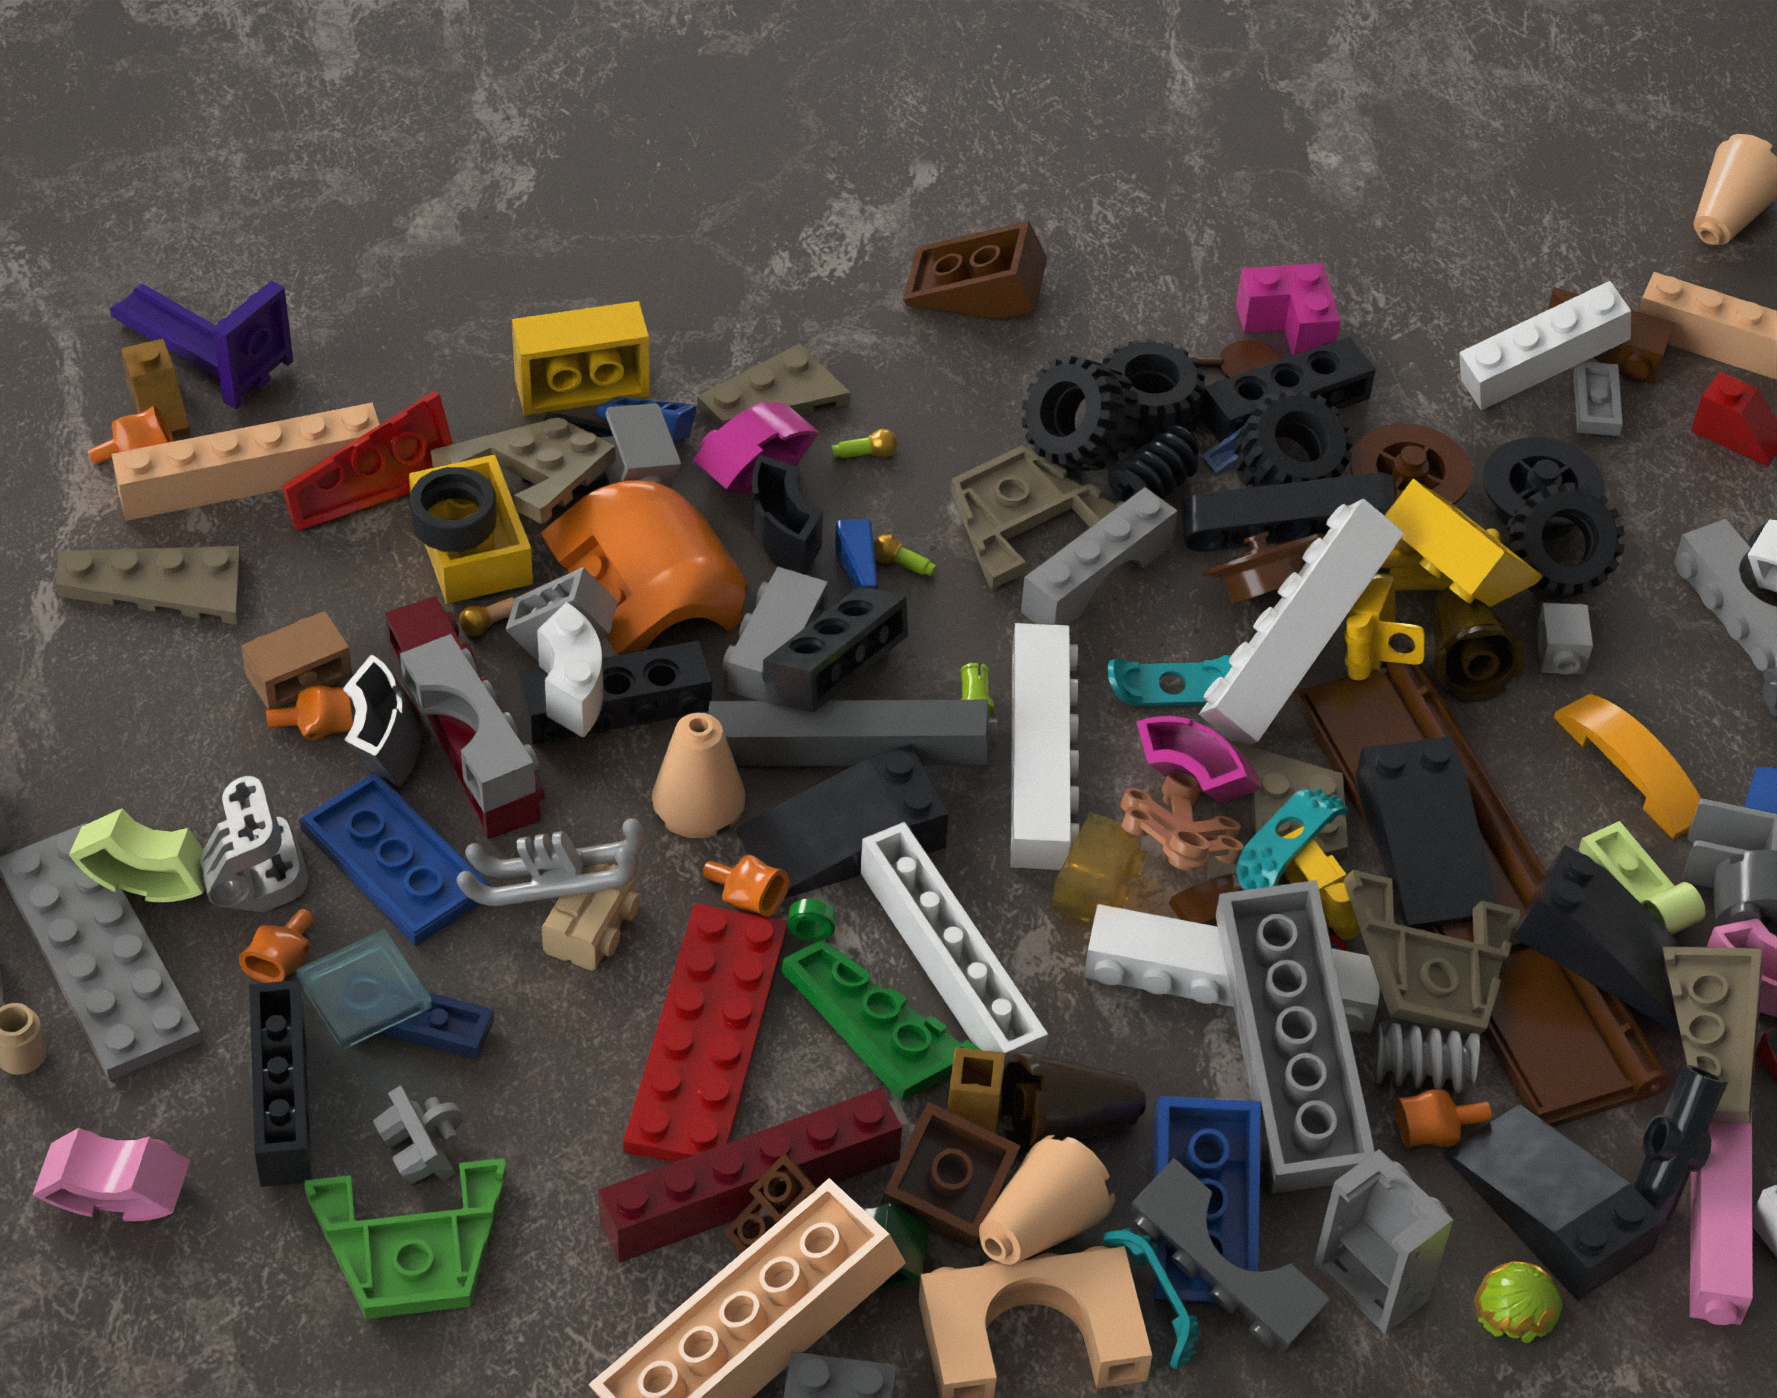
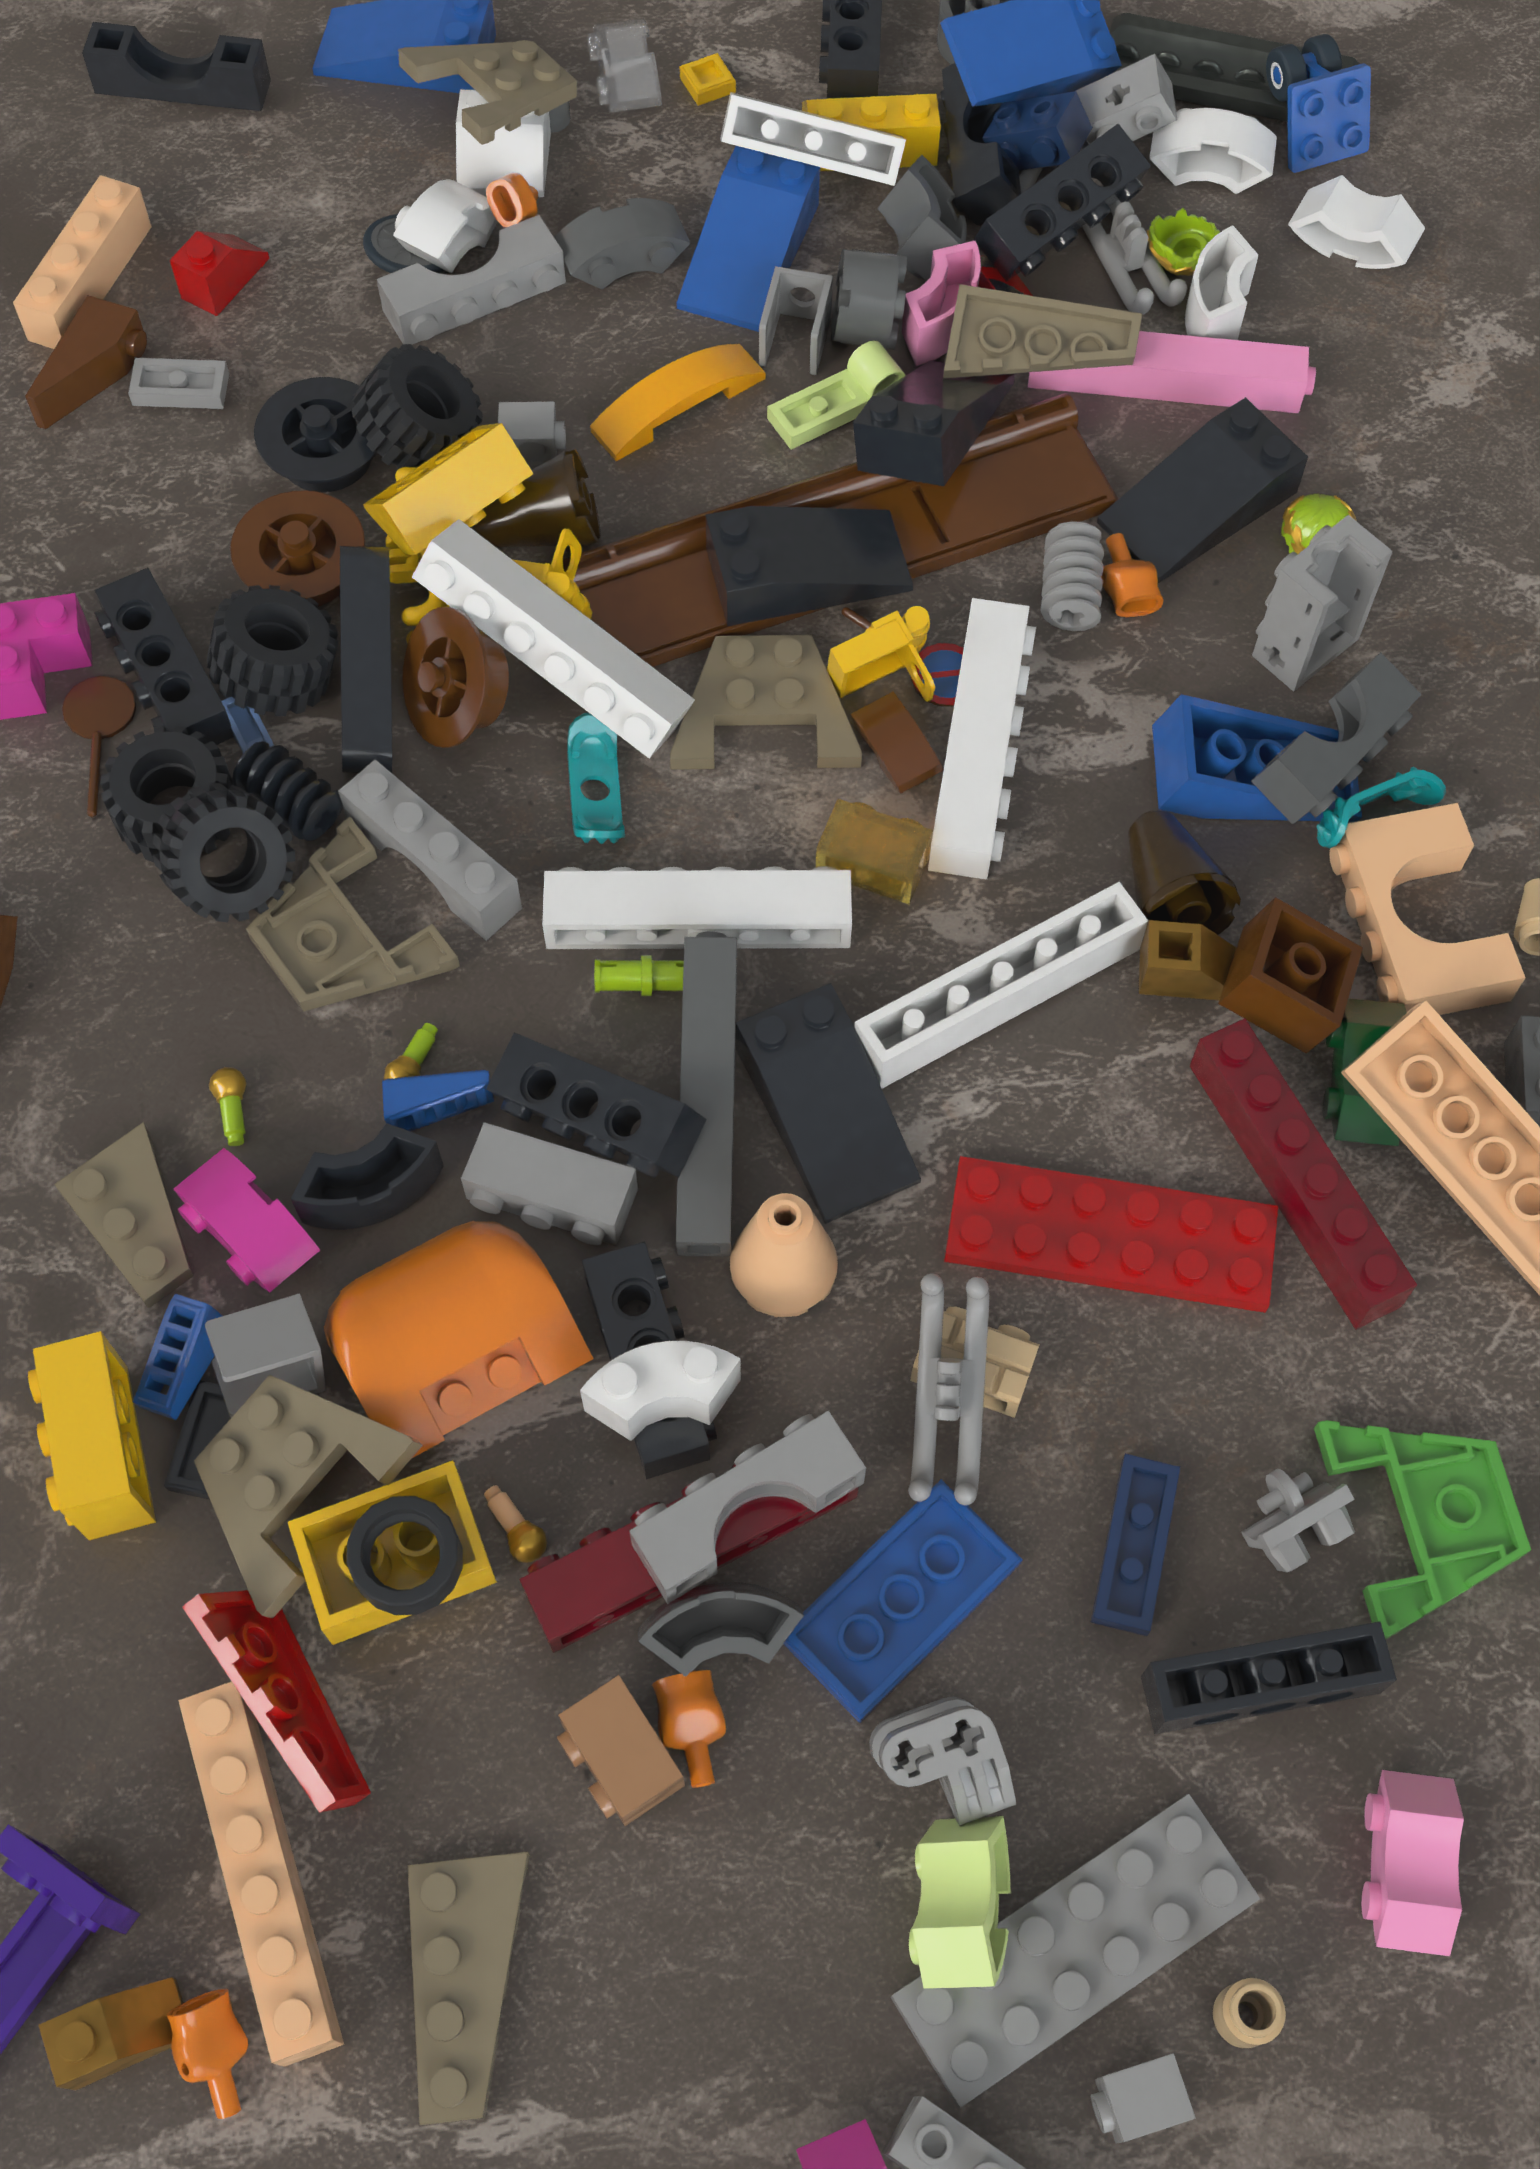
camera: 90 degrees left, 15 degrees up
(277, 949) = (1061, 1714): orange piece -> none
(363, 989) = (1125, 1598): clear light blue tile -> none
(538, 605) = (552, 1419): light grey brick -> none
(750, 884) = (919, 1197): orange piece -> none
(775, 1196) = (1351, 1133): reddish brown slope -> none
(811, 920) = (961, 1129): green tile -> none
(875, 1022) = (1091, 1054): green wing -> none
(1047, 1201) = (1320, 885): light nougat cone -> none
(1186, 841) = (879, 747): nougat plant -> none
(1199, 751) = (719, 750): dark pink brick -> none
(1269, 854) = (864, 684): teal piece -> none
(1294, 1034) = (1086, 664): light grey brick -> none
(1430, 974) = (986, 556): dark tan wing -> none
(1545, 345) = (123, 406): white brick -> none
(1679, 1139) = (1156, 357): black piece -> none

